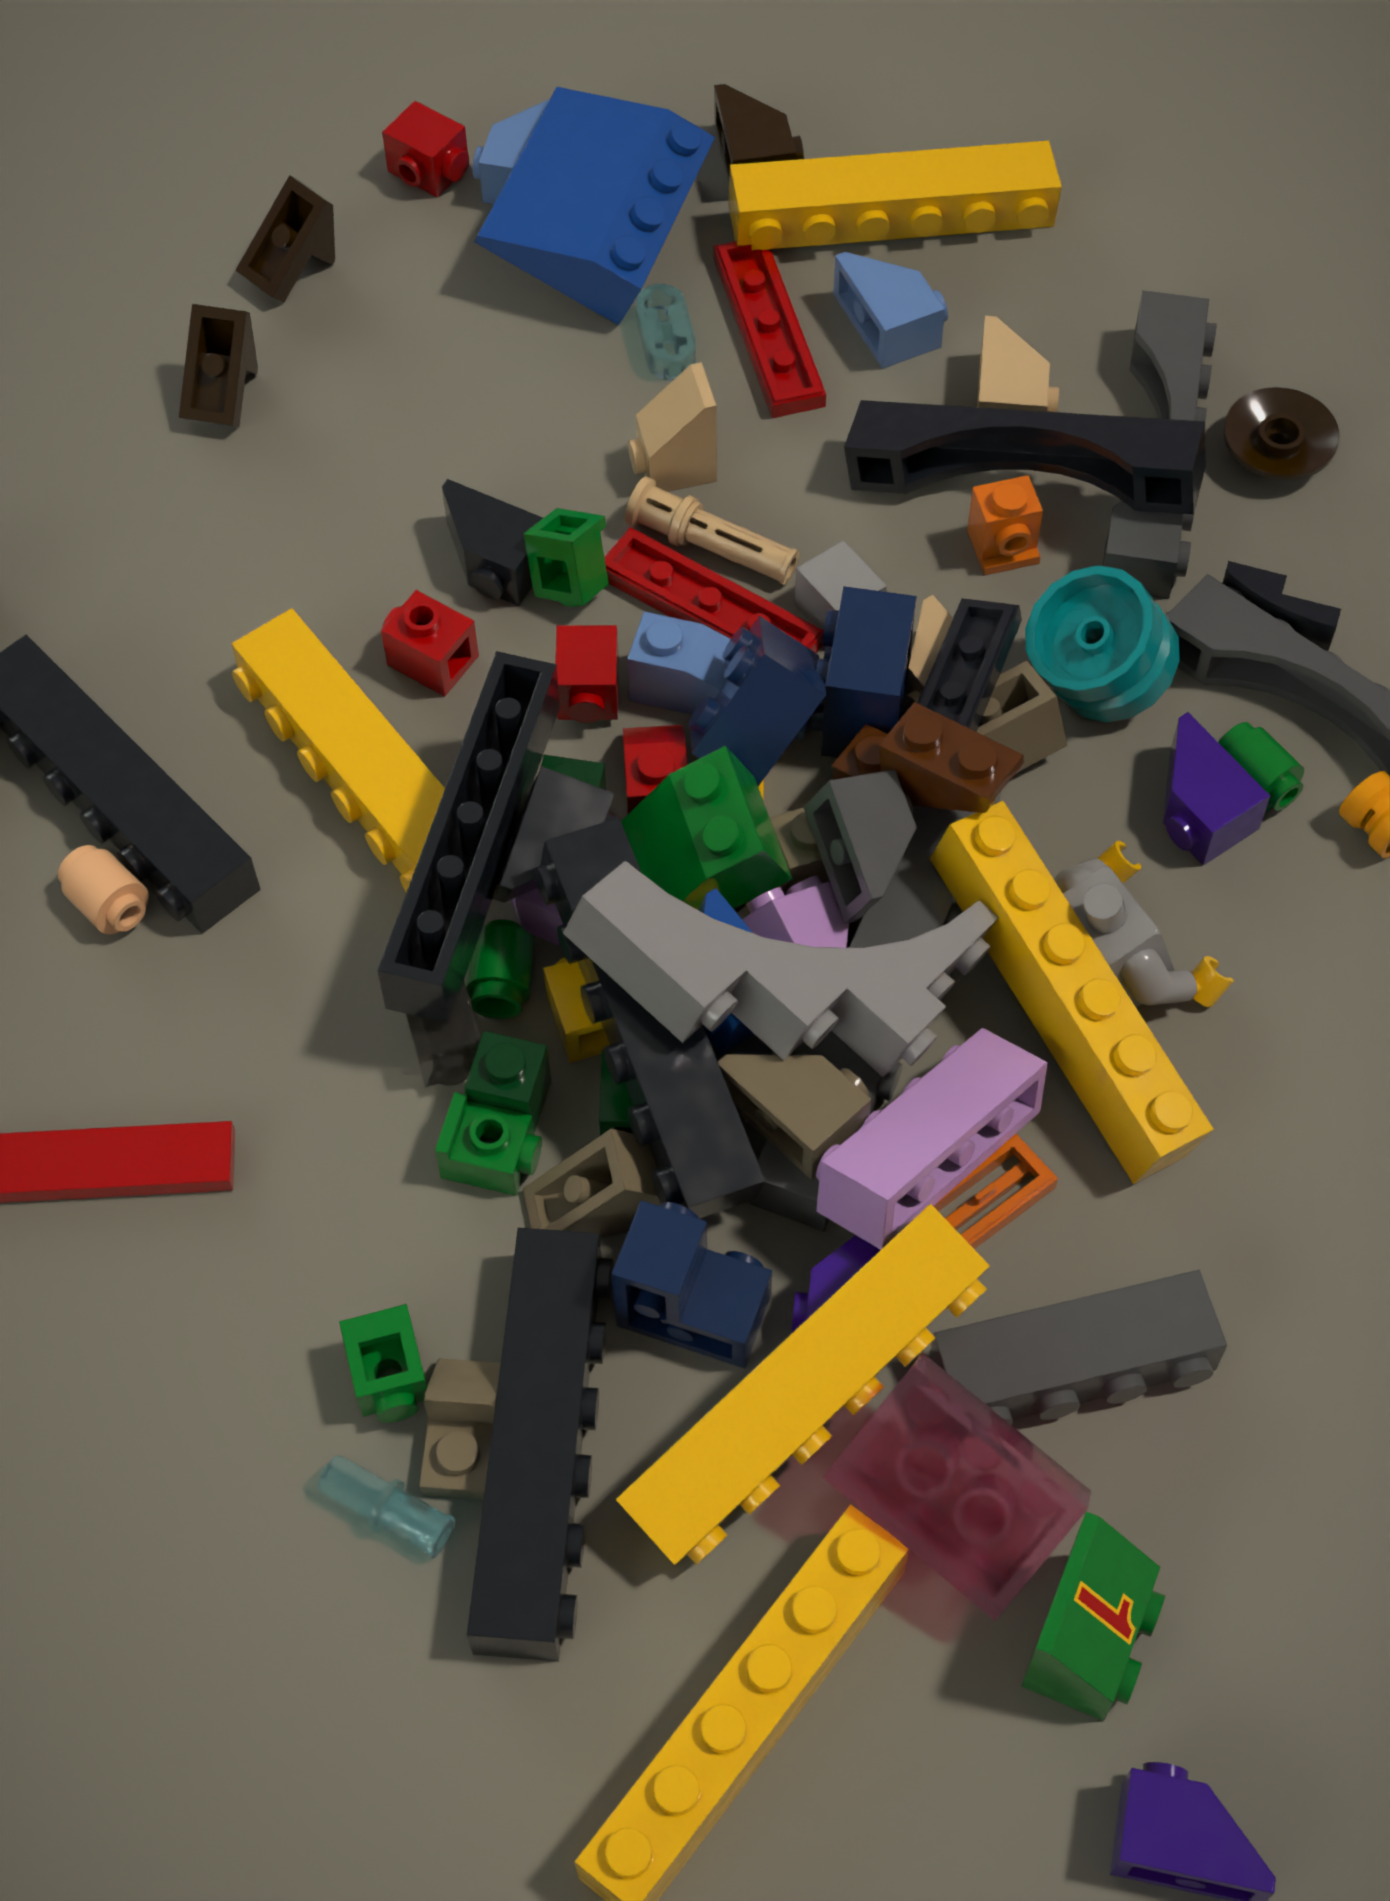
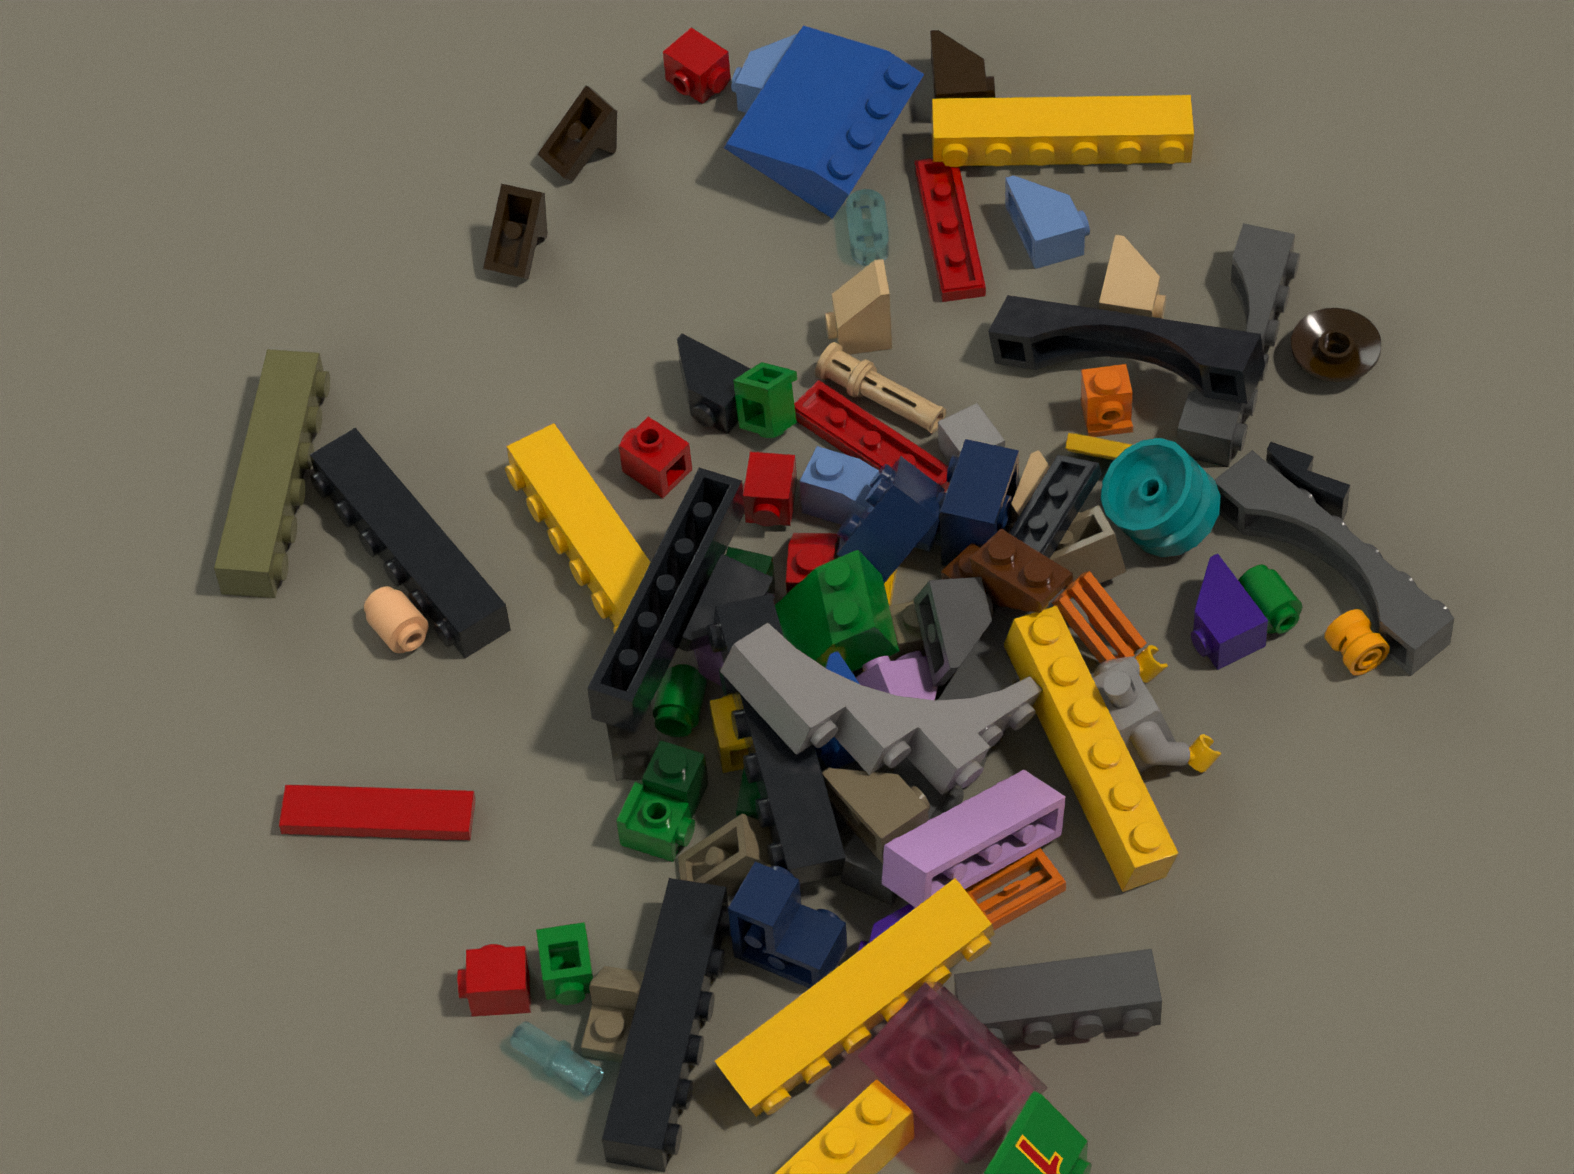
camera: 10 degrees right, 5 degrees down
(288, 1397) = (496, 980): none -> red brick
(1006, 585) = (1095, 446): none -> yellow tile
(1054, 810) = (1101, 617): none -> orange tile

